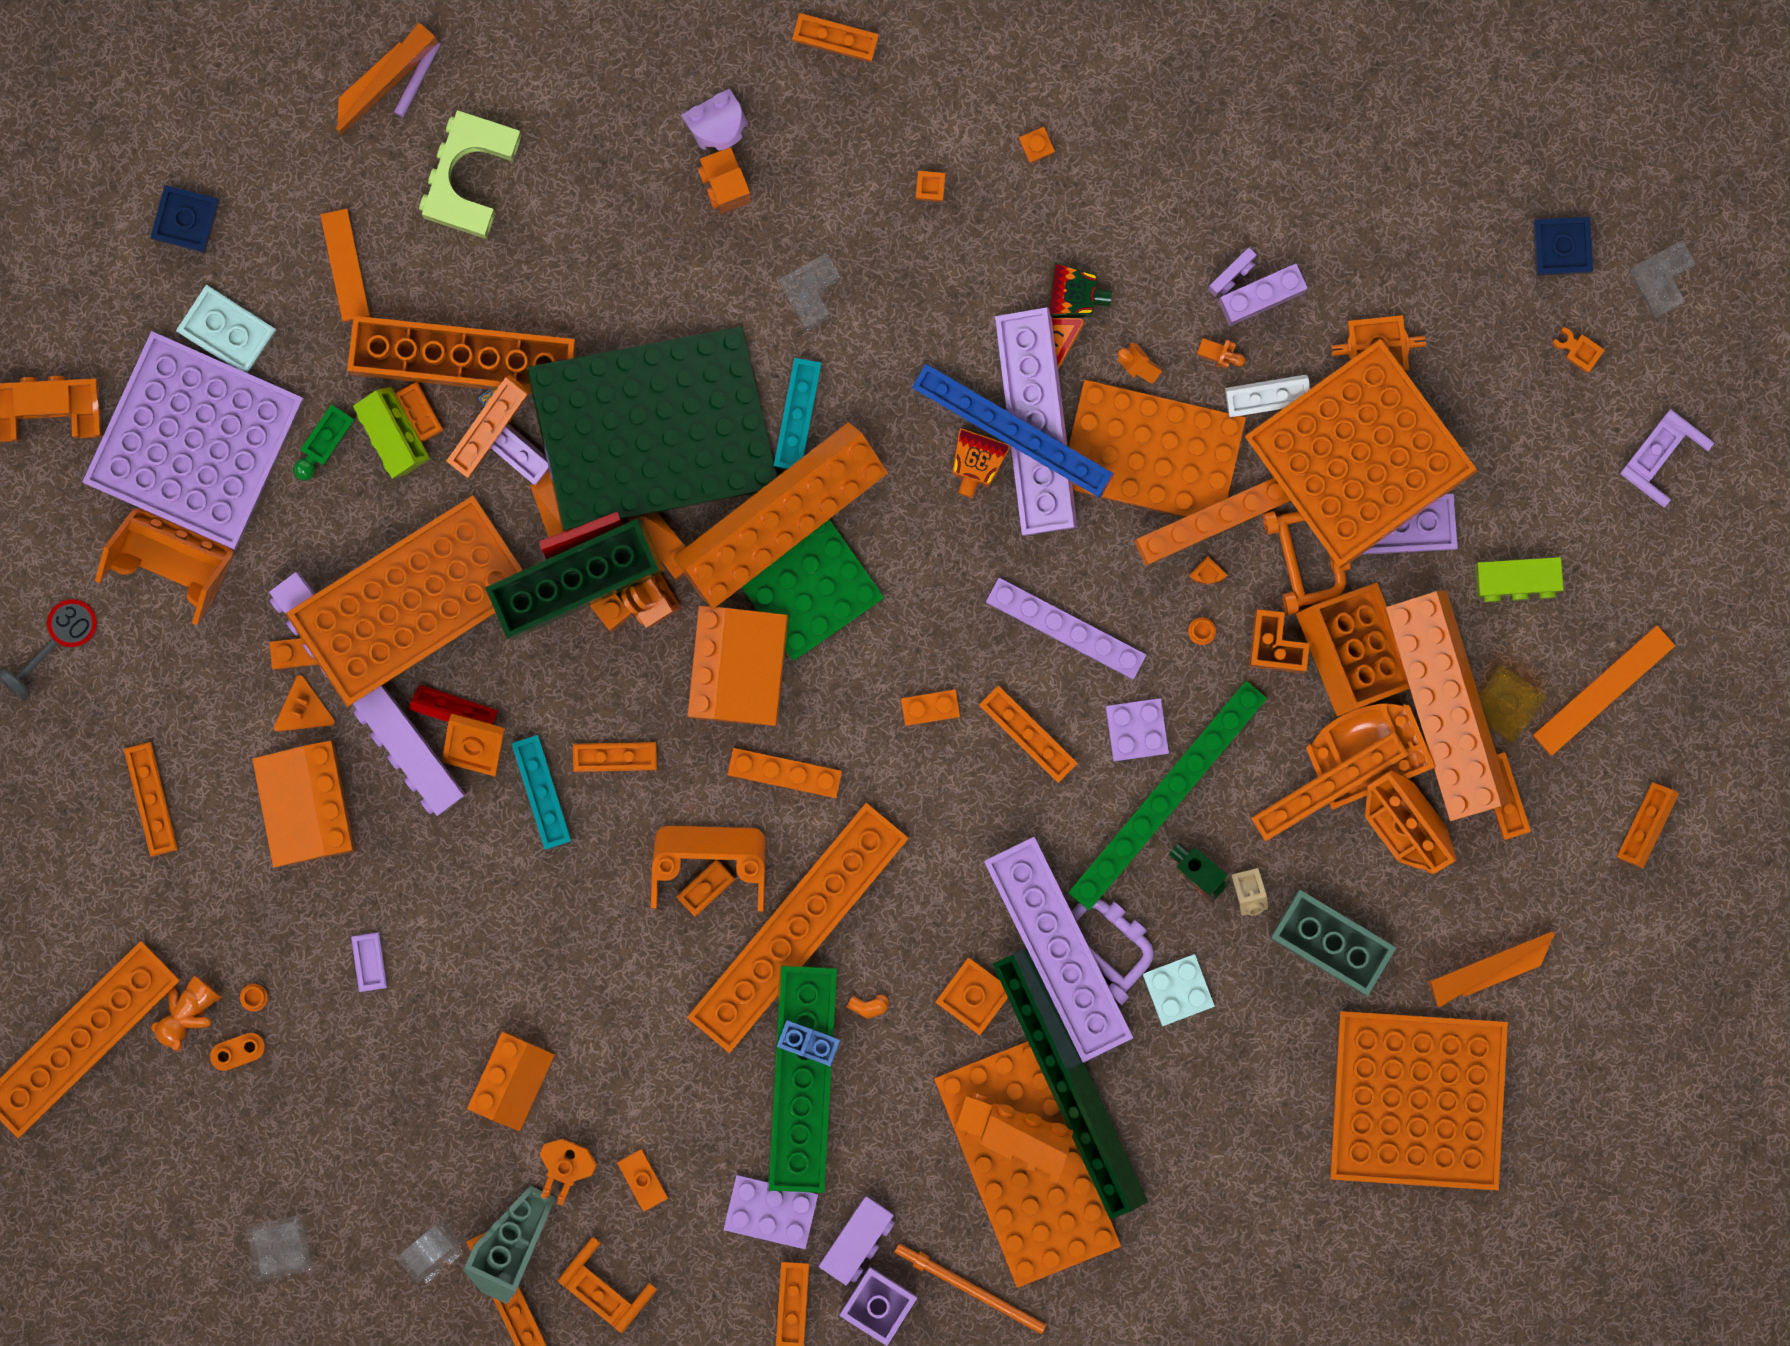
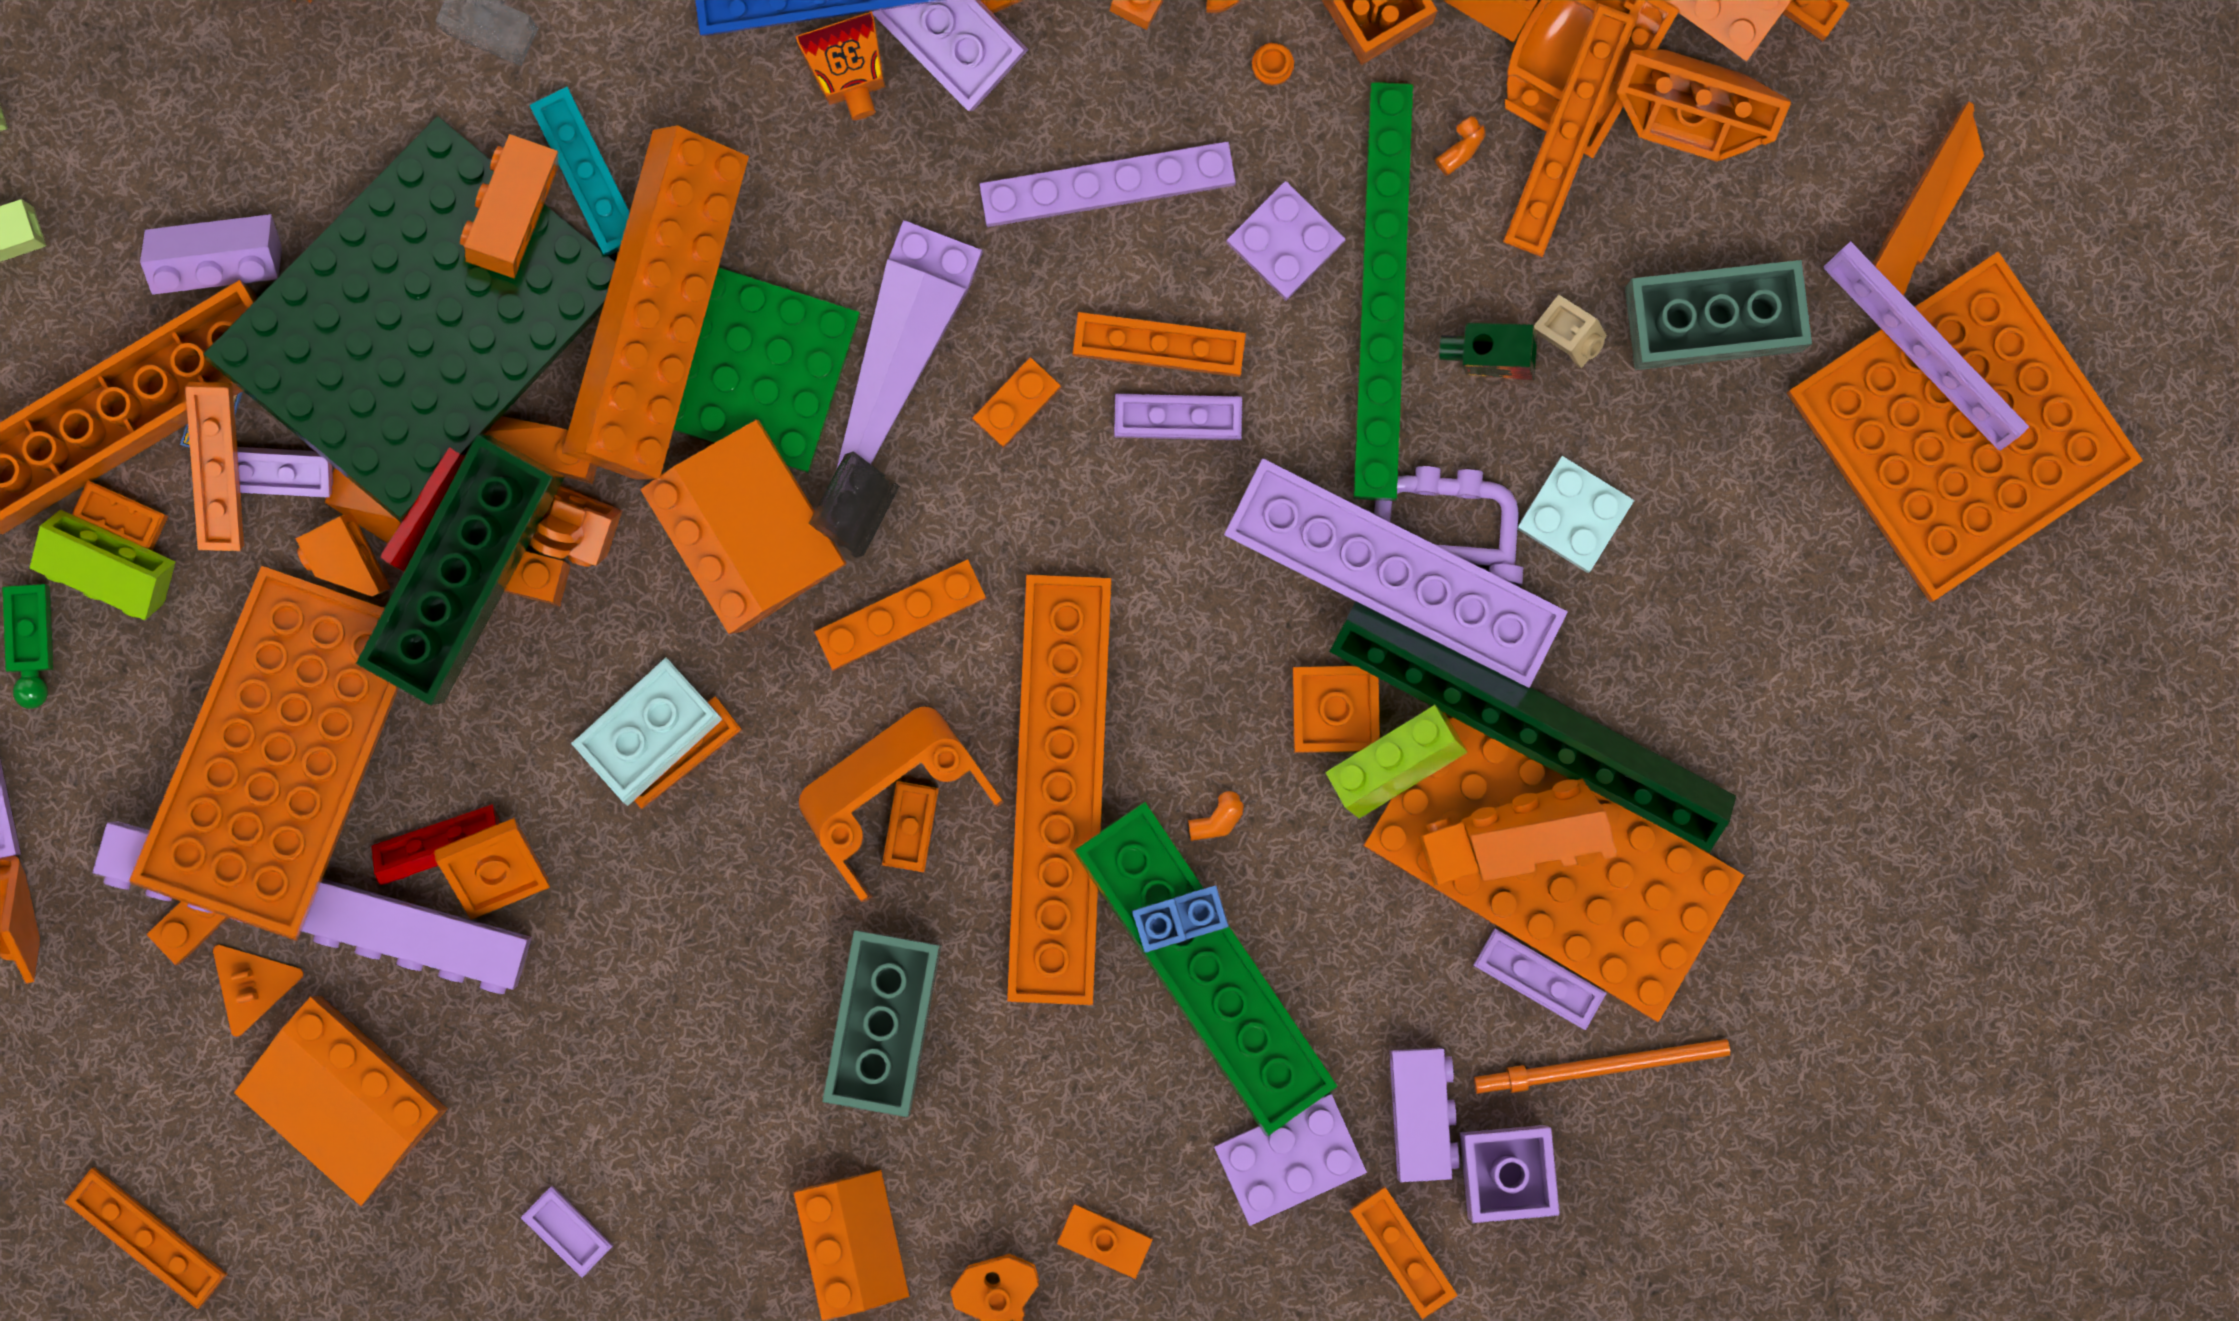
camera: 35 degrees left, 0 degrees up
(518, 522) = (342, 556): none -> orange slope
(541, 792) = (621, 863): teal plate -> none
(569, 312) = (211, 254): none -> lavender brick
(606, 733) = (646, 731): none -> light aqua tile
(613, 979) = (882, 1023): none -> sand green brick
(743, 405) = (509, 205): none -> orange brick
(804, 698) = (854, 504): none -> clear smoke plate
(916, 616) = (914, 307): none -> lavender plate
(972, 1218) = (1539, 979): none -> lavender tile
(983, 1048) = (1396, 762): none -> lime brick
(1009, 779) = (1178, 417): none -> lavender tile
(1268, 753) = (1463, 150): none -> orange arm
(1427, 1042) = (1925, 346): none -> lavender tile

